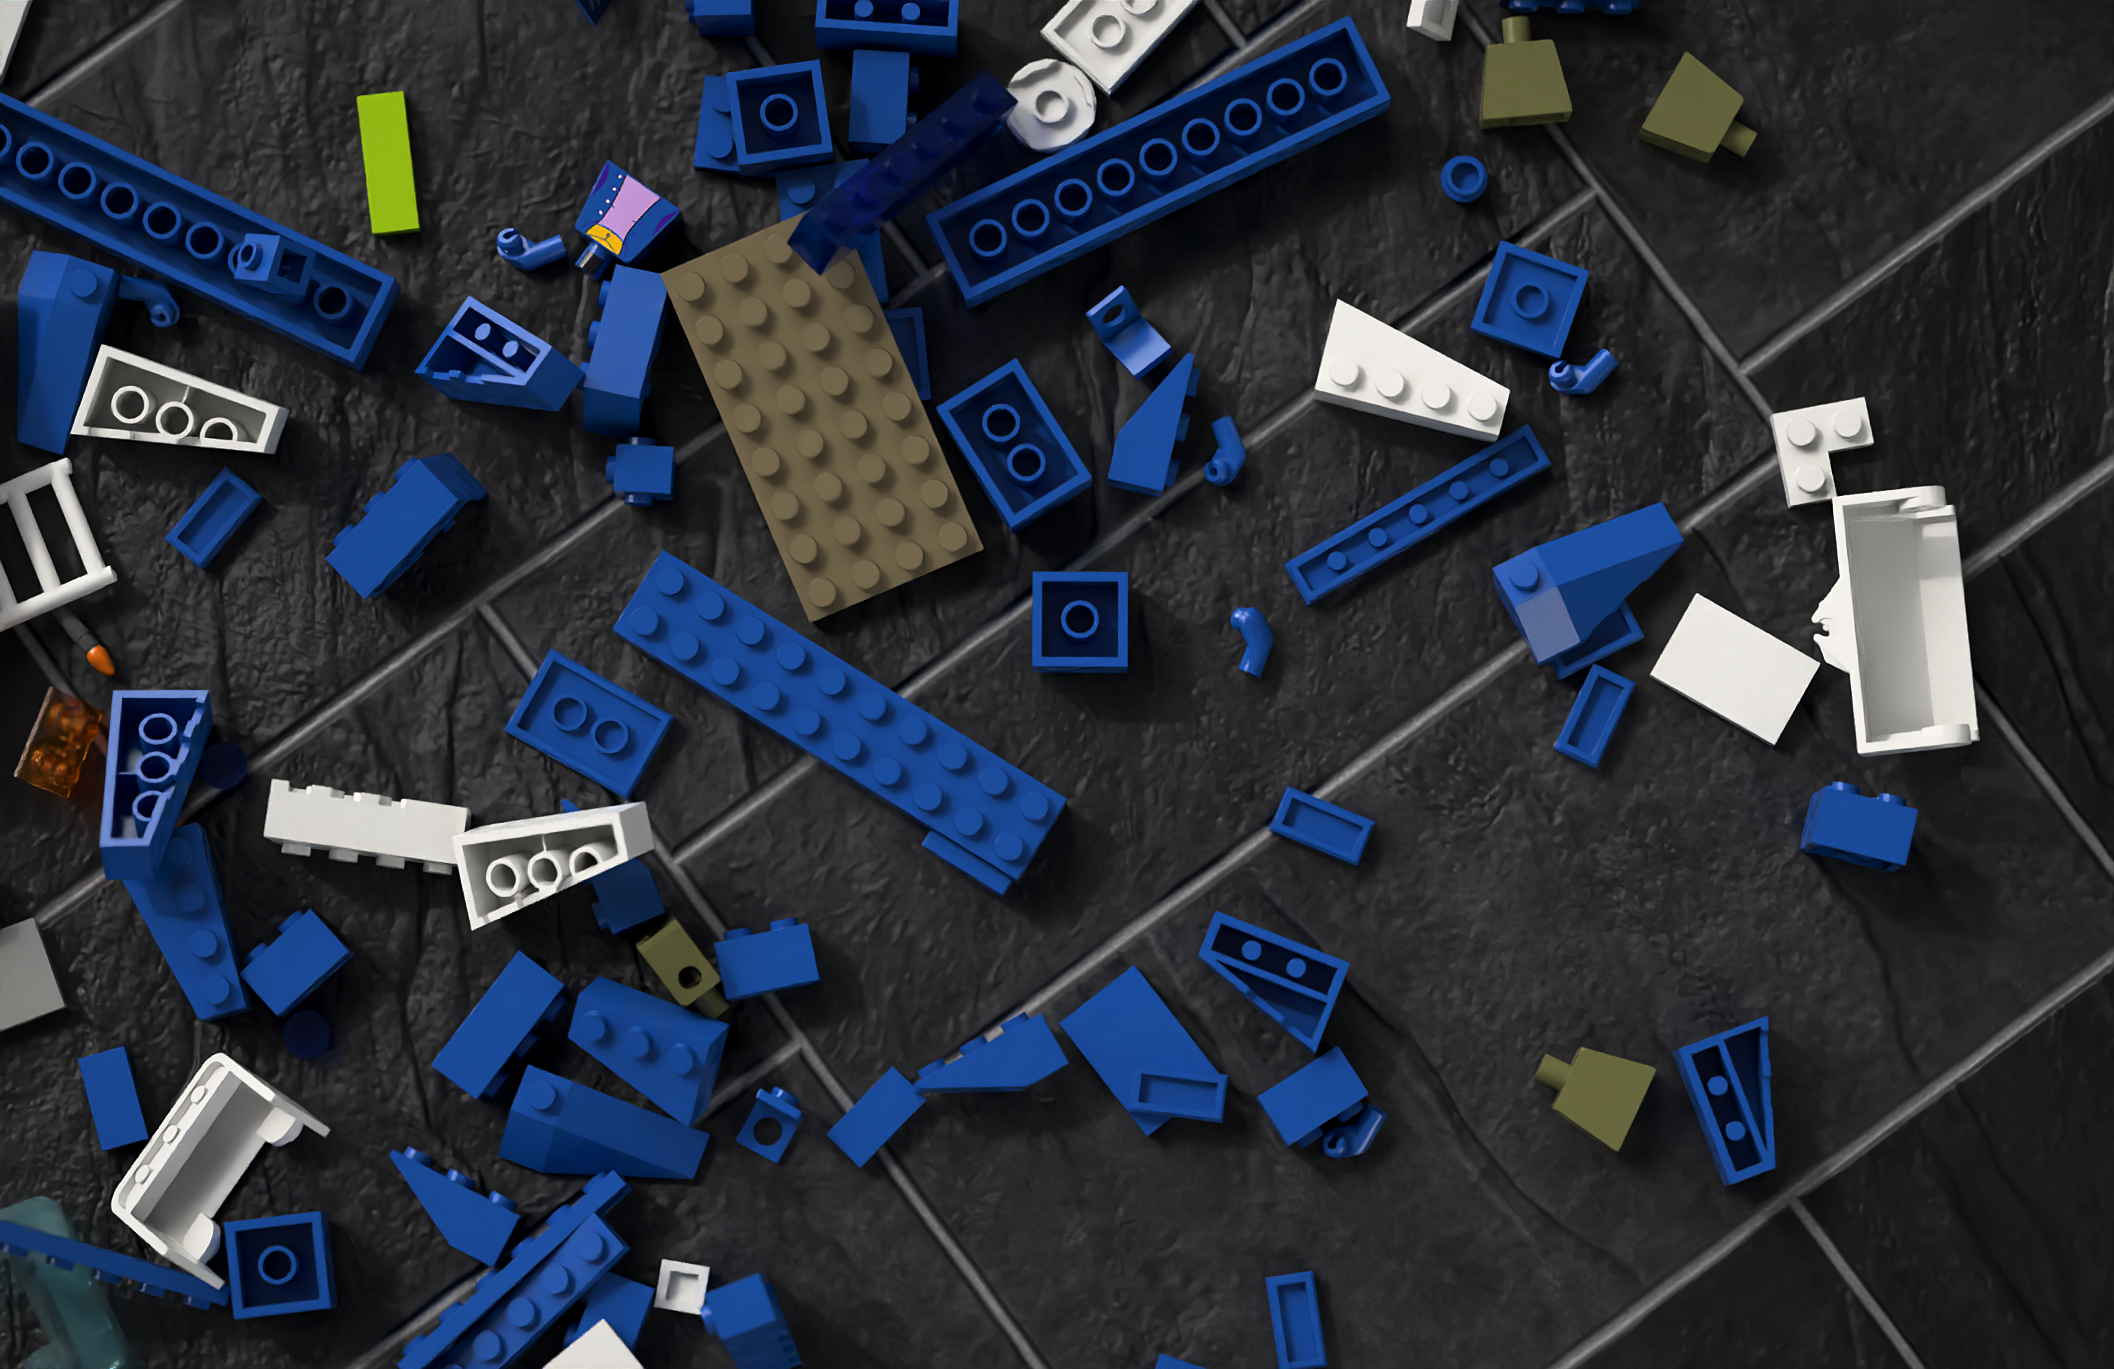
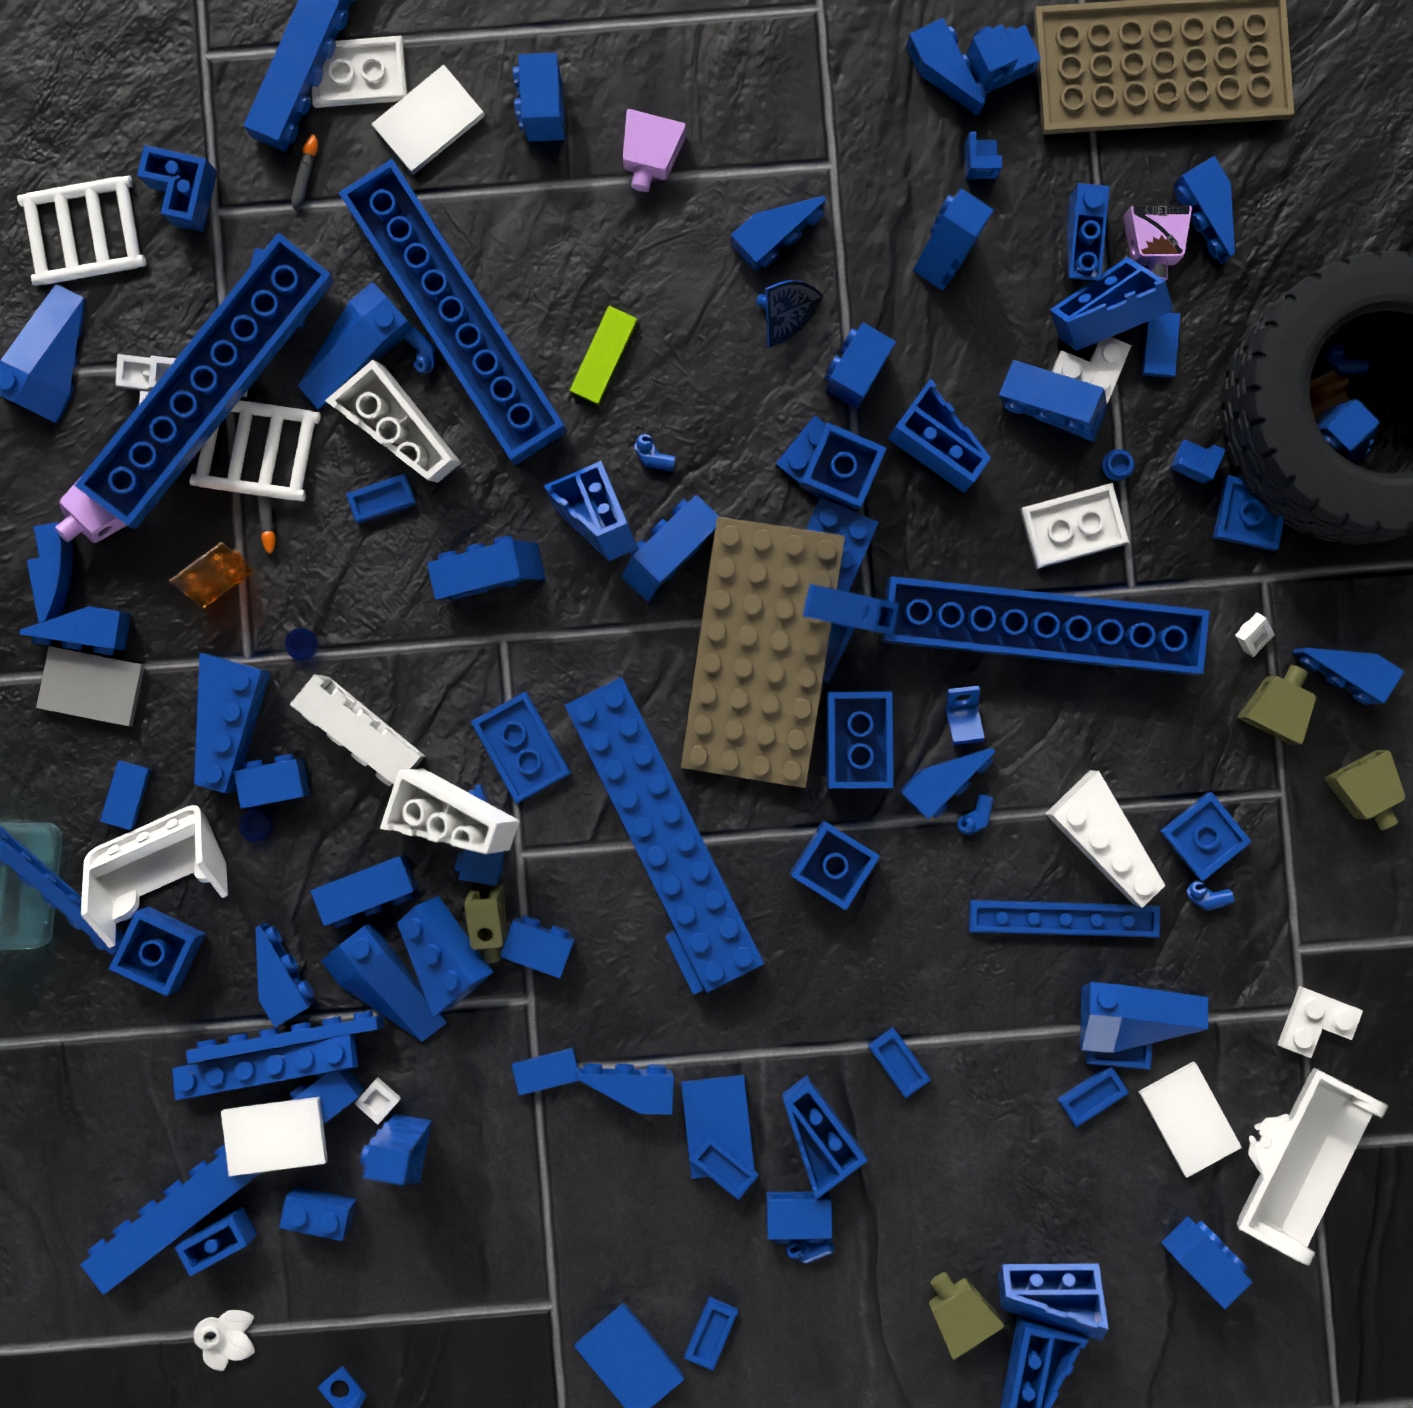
camera: 30 degrees right, 5 degrees up
(149, 769) = (246, 627): blue wedge -> none
(275, 264) = (497, 374): blue brick -> none
(622, 222) = (715, 471): torso -> none
(642, 471) = (638, 622): blue brick -> none
(776, 1105) = (495, 1032): blue bracket -> none
(881, 99) = (905, 492): blue brick -> none
(898, 285) = (850, 609): none -> blue slope
(902, 172) = (892, 544): clear blue brick -> none
(1053, 106) = (1000, 554): white tile -> none
(1257, 637) = (929, 933): blue arm -> none
(1464, 179) = (1211, 742): blue plate -> none
(1695, 990) = (1056, 1295): none -> blue wedge

